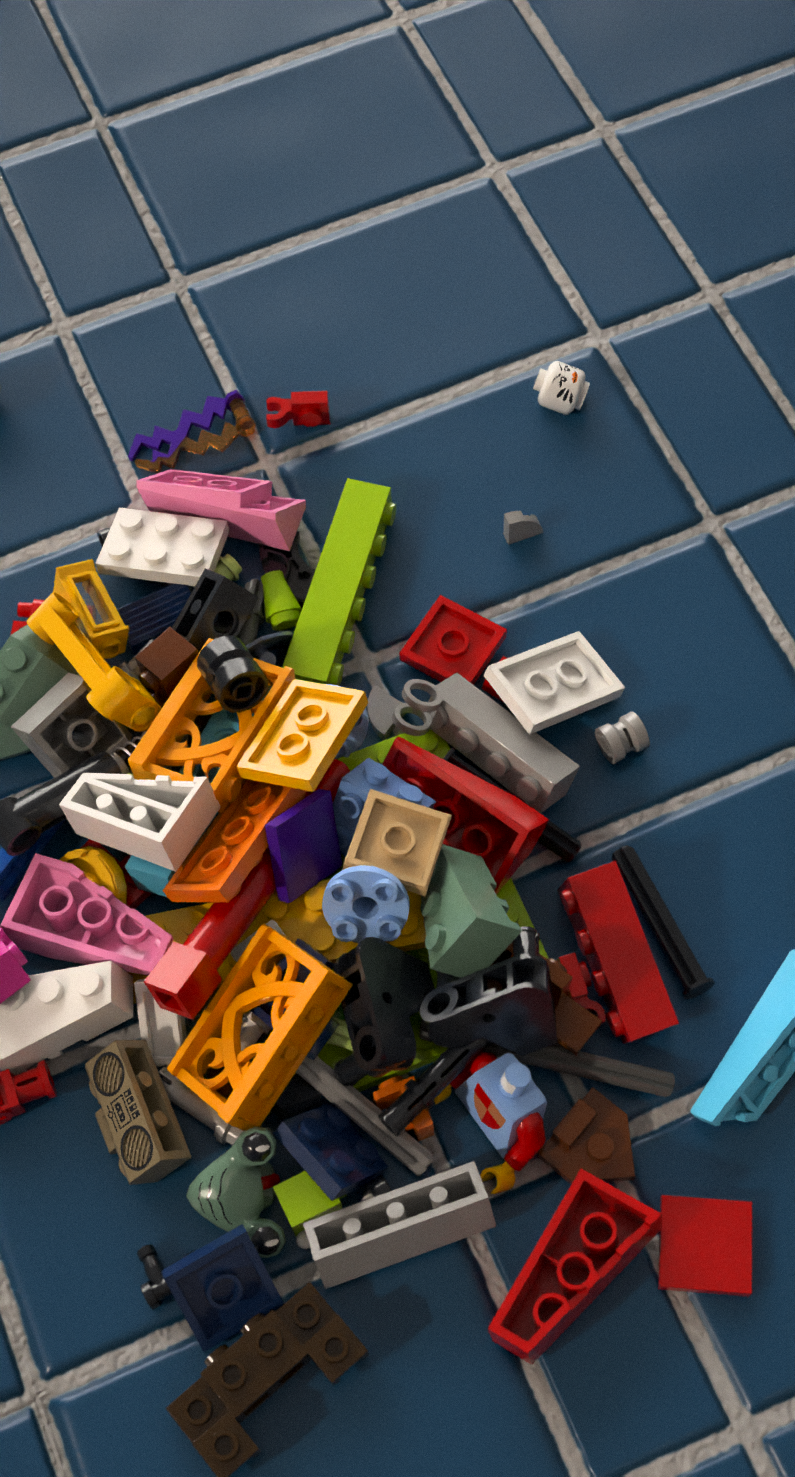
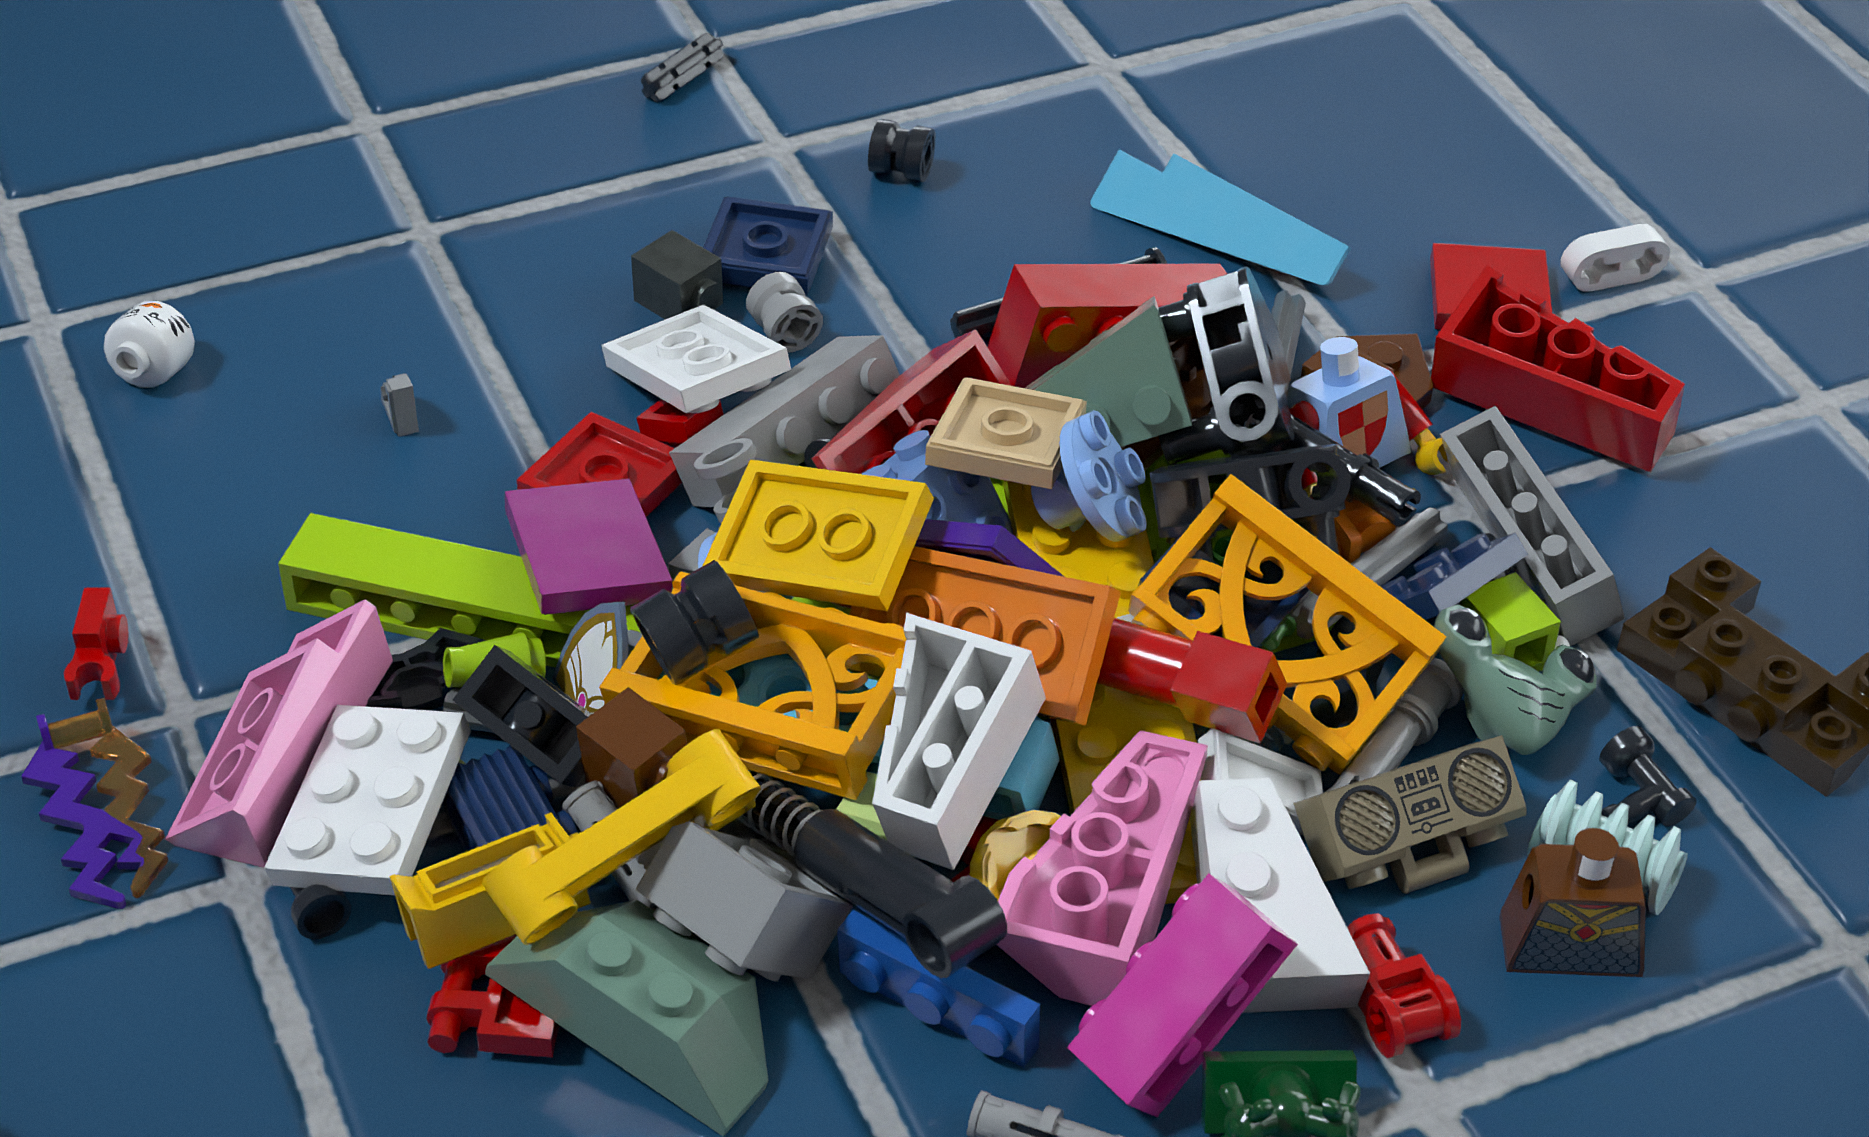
camera: 95 degrees left, 20 degrees down
(46, 1207) = (1577, 910): none -> torso
(104, 1237) = (1658, 861): none -> light aqua piece
(222, 1287) = (1661, 707): dark blue plate -> none
(357, 630) = (586, 545): none -> magenta tile
(651, 670) = (676, 276): none -> pearl dark grey brick
(702, 724) = (768, 238): none -> dark blue plate
(744, 1351) = (1615, 257): none -> white beam

